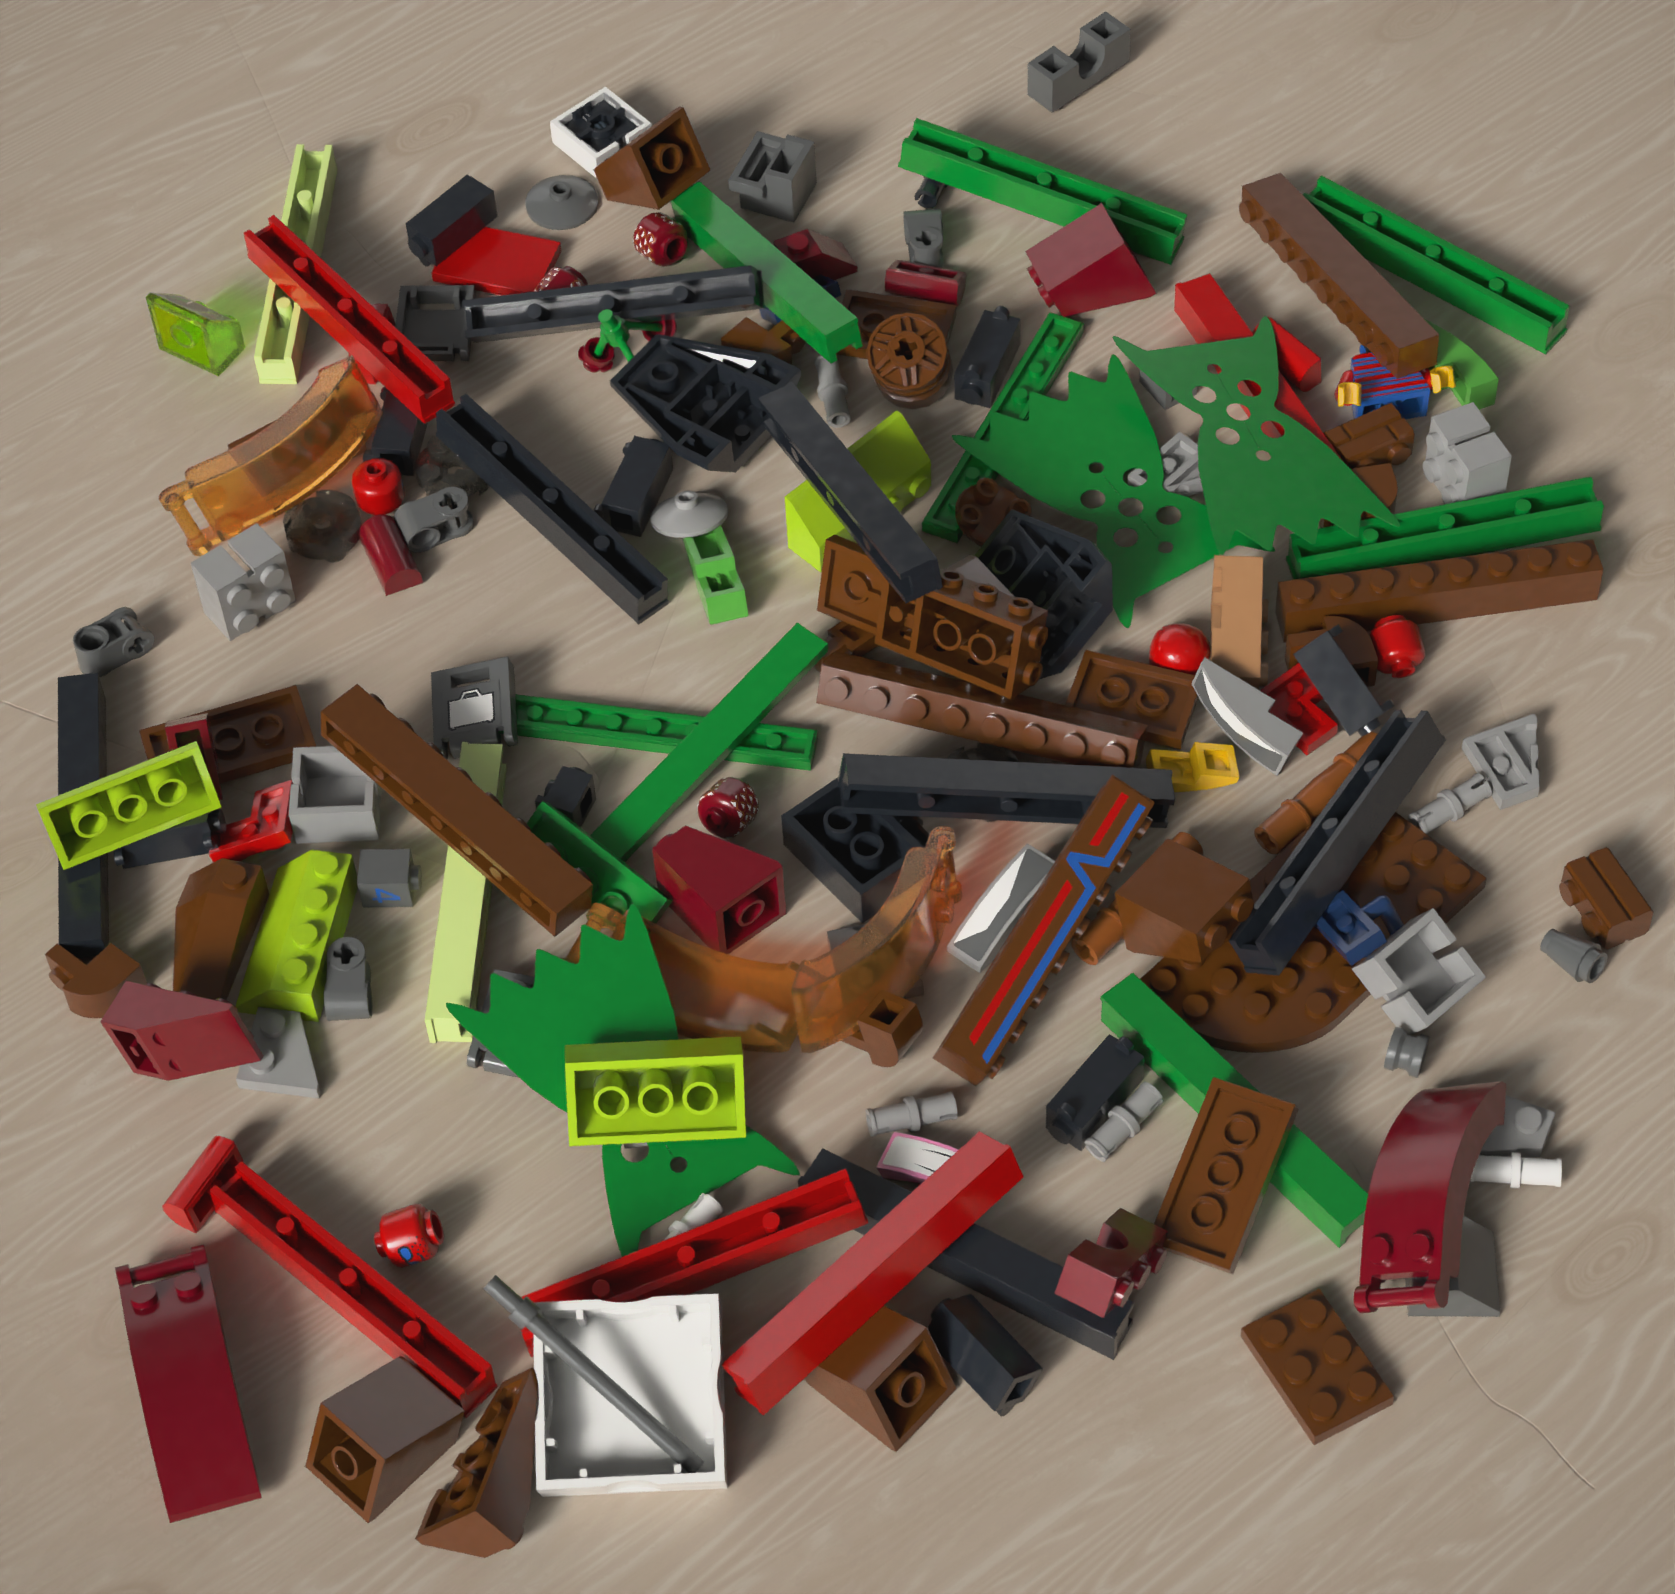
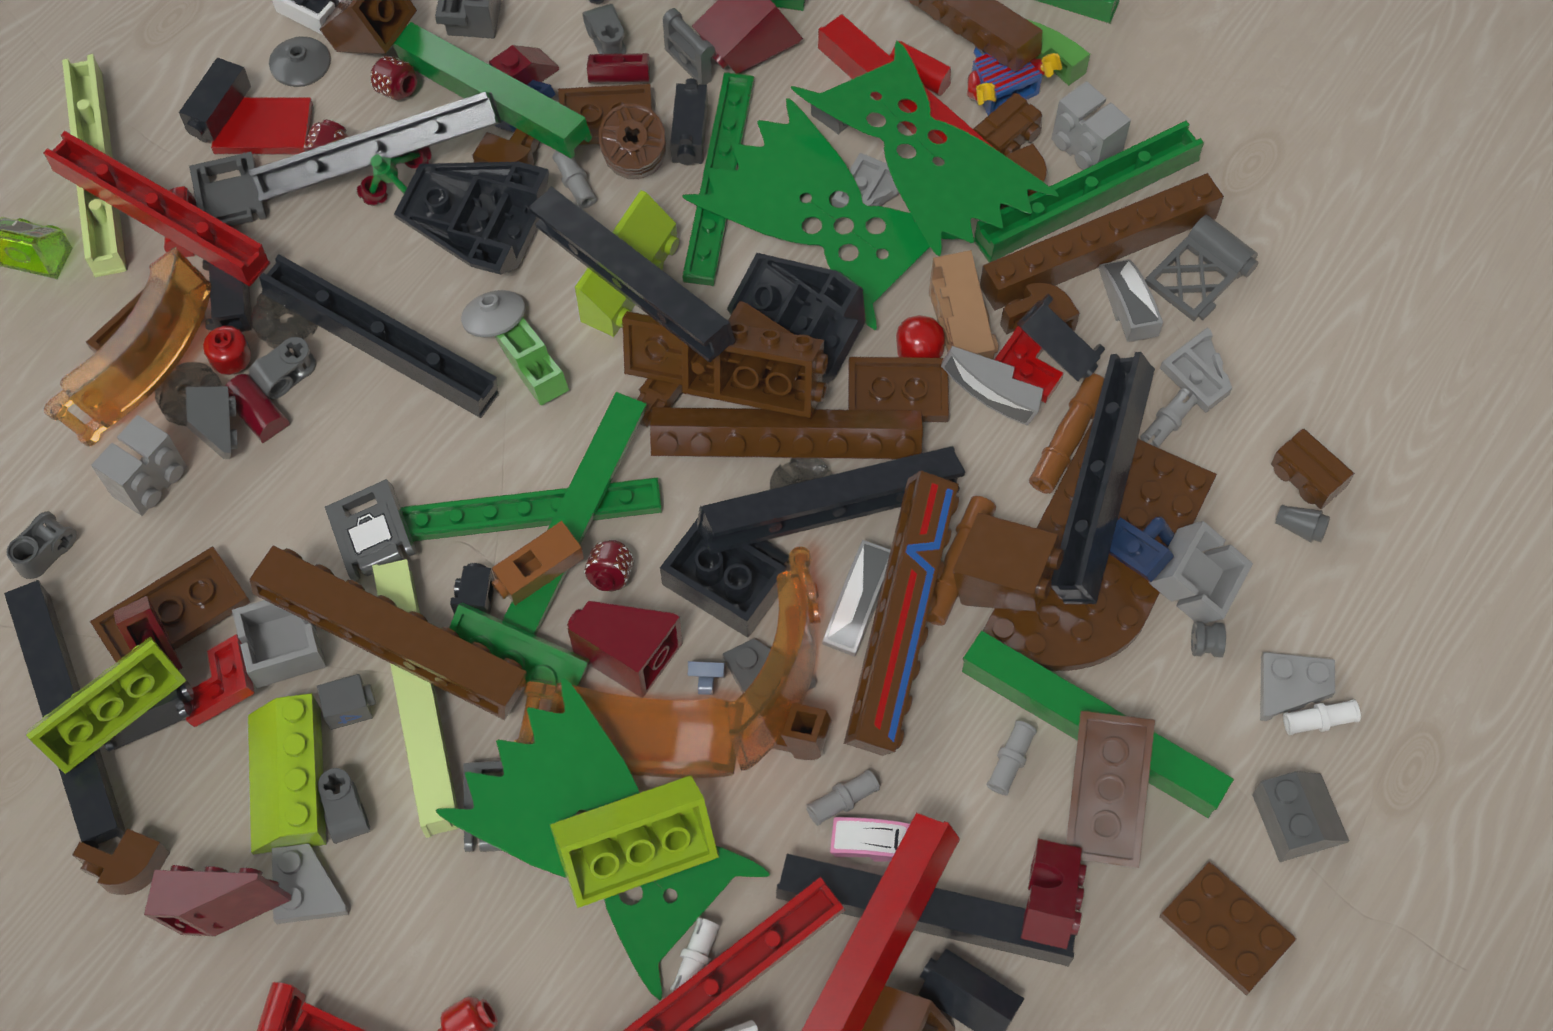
camera: 20 degrees left, 10 degrees up
(216, 926) = (210, 792): reddish brown wedge -> none
(335, 548) = (209, 417): none -> dark grey slope
(636, 485) = (442, 298): black brick -> none
(645, 781) = (536, 563): none -> dark orange brick
(800, 943) = (706, 672): none -> sand blue tile
(984, 507) = (732, 253): reddish brown dish -> none
(1012, 273) = (687, 47): none -> dark grey plate
(1094, 1090) = (981, 740): black brick -> none
(1200, 769) = (967, 435): yellow slope -> none
(1397, 646) = (1087, 294): red head -> none
(1422, 1193) = (1271, 762): dark red windscreen -> none
(1451, 665) = (1131, 300): none -> slope
(1584, 636) = (1222, 254): none -> dark grey piece

